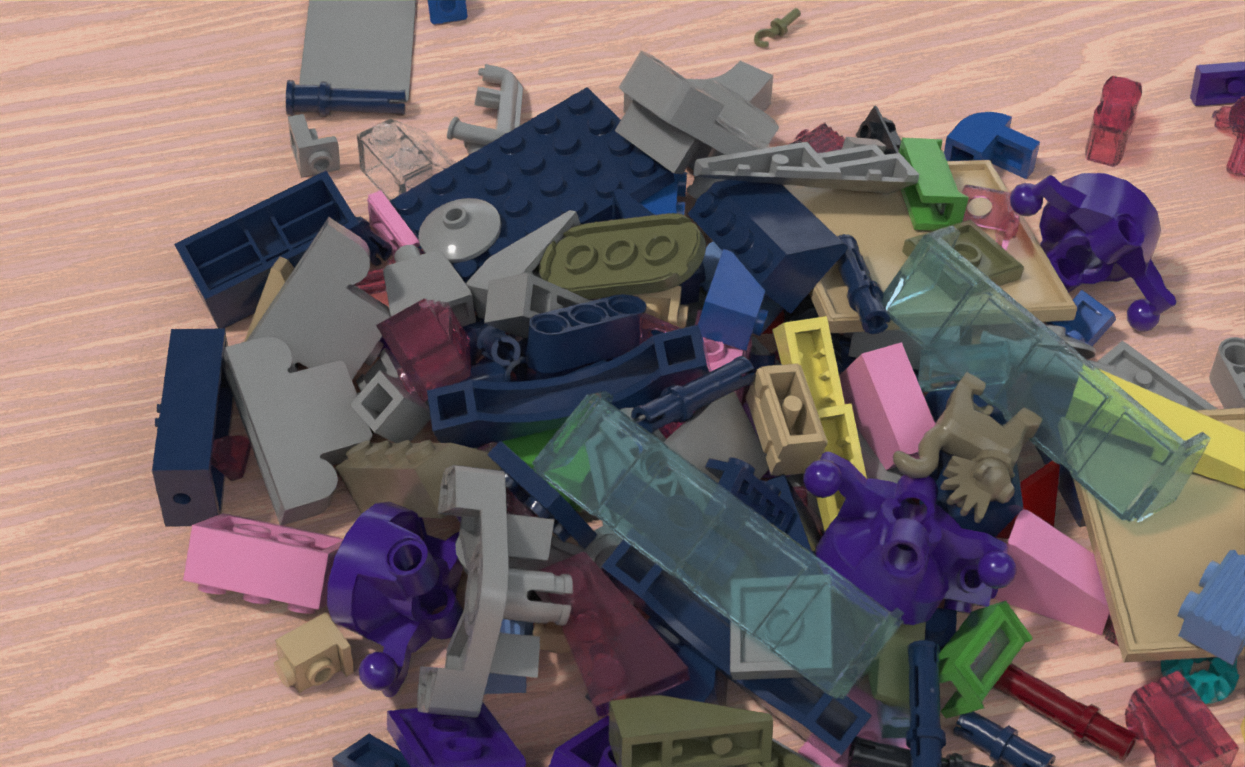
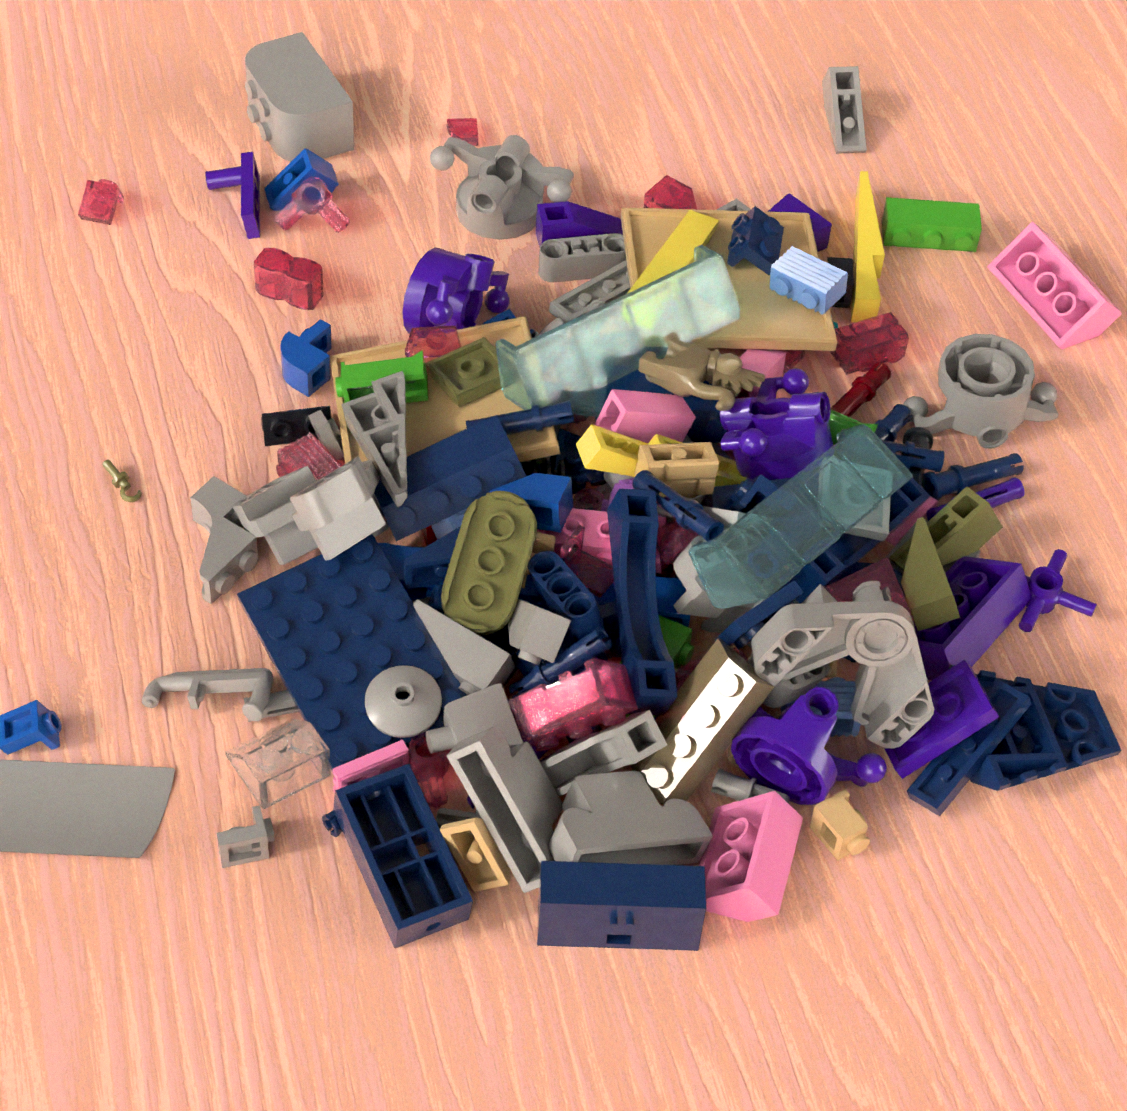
camera: 90 degrees left, 0 degrees up
(324, 99) = (173, 828): dark blue pin -> none

